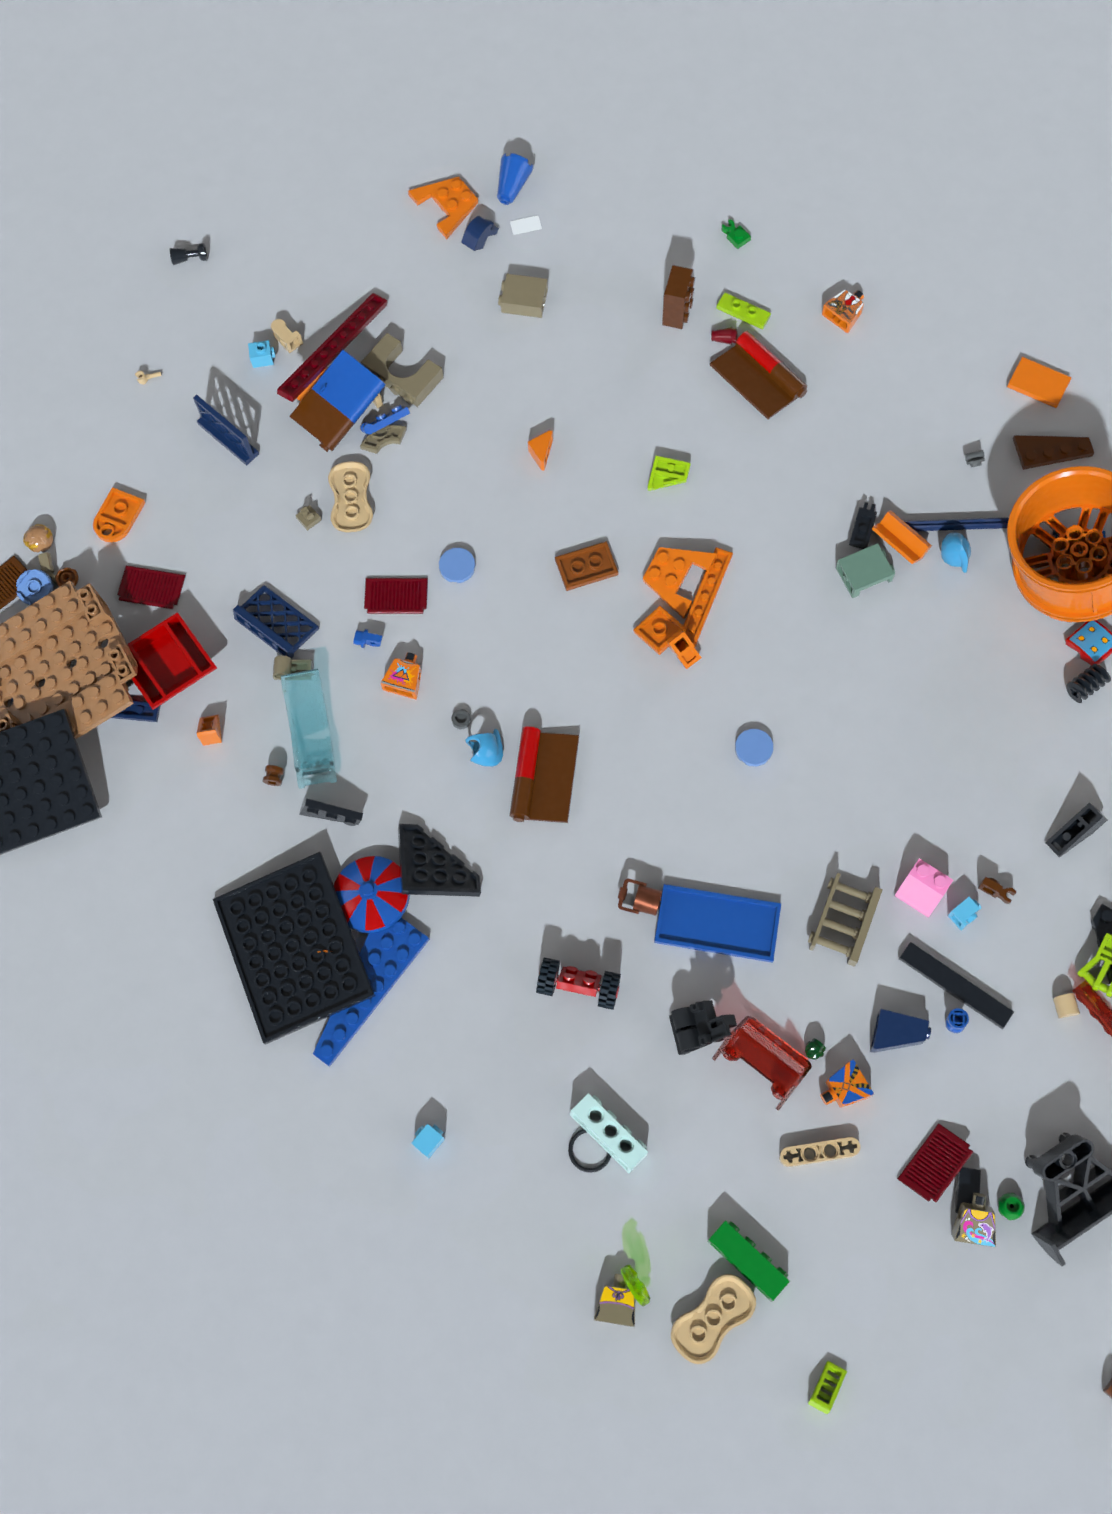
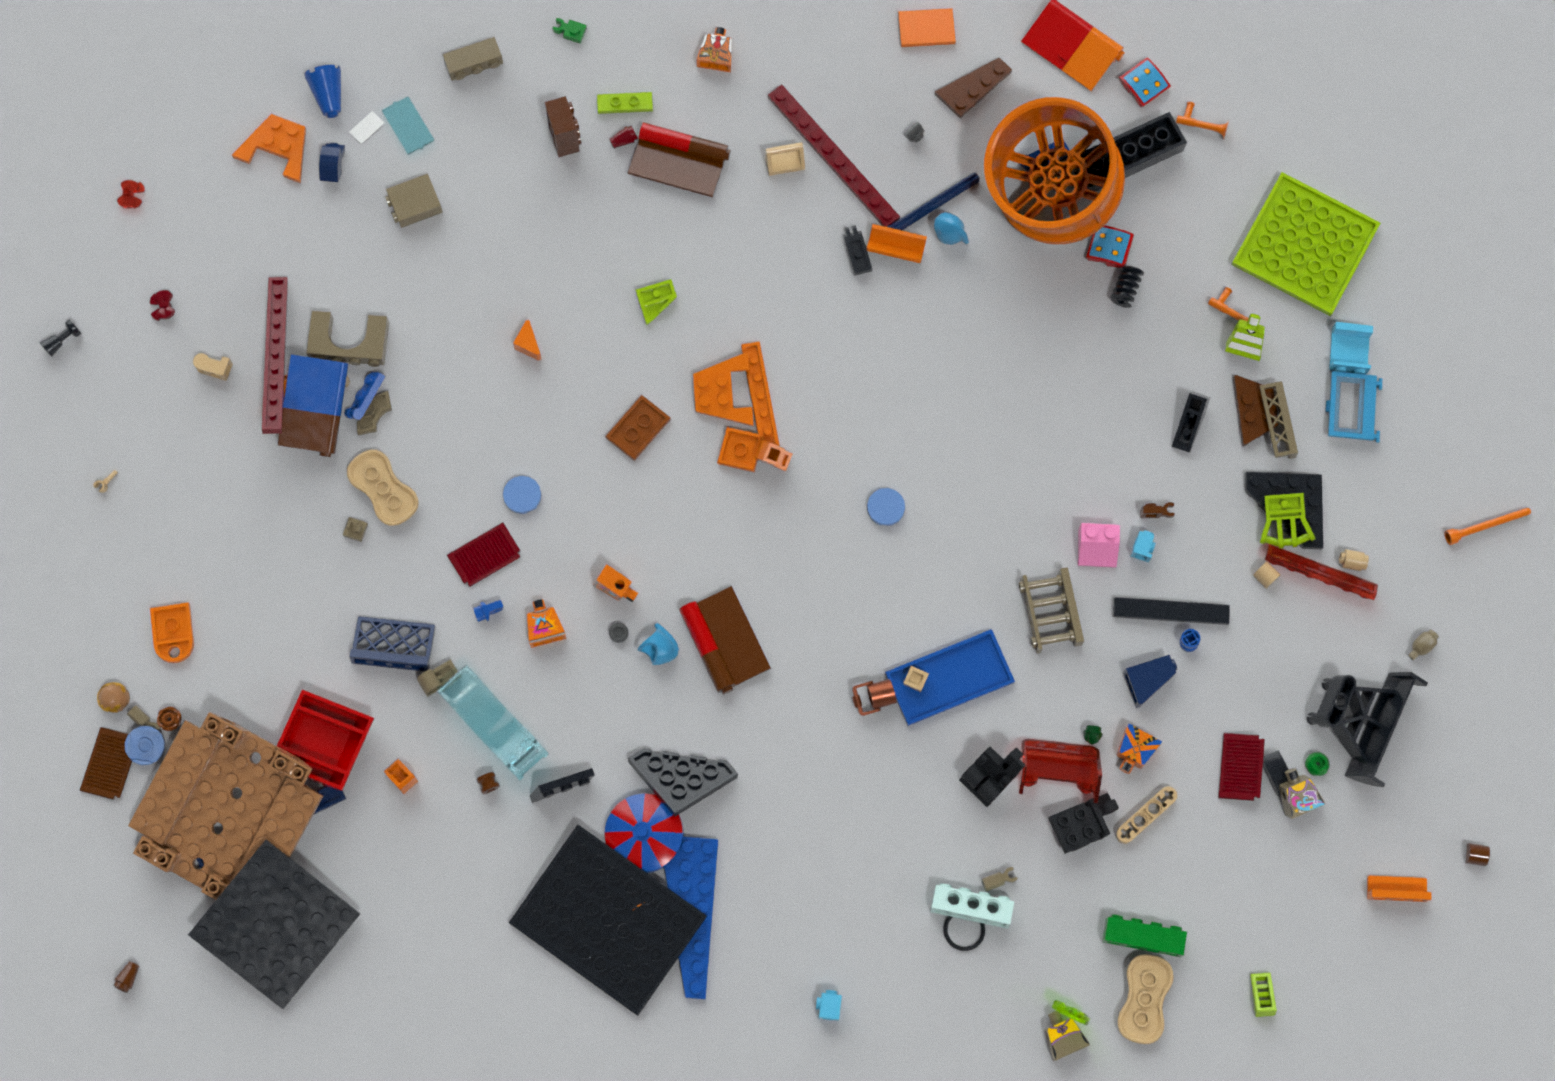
camera: 40 degrees left, 5 degrees up
(150, 587) = (252, 680): dark red window -> none
(224, 432) = (223, 494): dark blue fence -> none
(261, 354) = (203, 397): medium azure brick -> none
(282, 268) = (162, 299): none -> dark red piece
(315, 175) = (128, 200): none -> clear red piece
(479, 670) = (609, 578): none -> orange torso
(558, 240) = (408, 125): none -> clear light blue piece
(578, 982) = (870, 798): plate -> none
(642, 215) = (473, 59): none -> dark tan brick
(647, 1124) = (997, 880): none -> dark tan bar
(686, 905) = (915, 679): none -> tan plate
(755, 1122) = (1083, 823): none -> black plate
(847, 424) = (785, 160): none -> tan tile
(865, 569) = (883, 291): sand green panel -> none
(892, 442) = (833, 156): none -> dark red plate
(1020, 1372) = (1397, 889): none -> orange panel

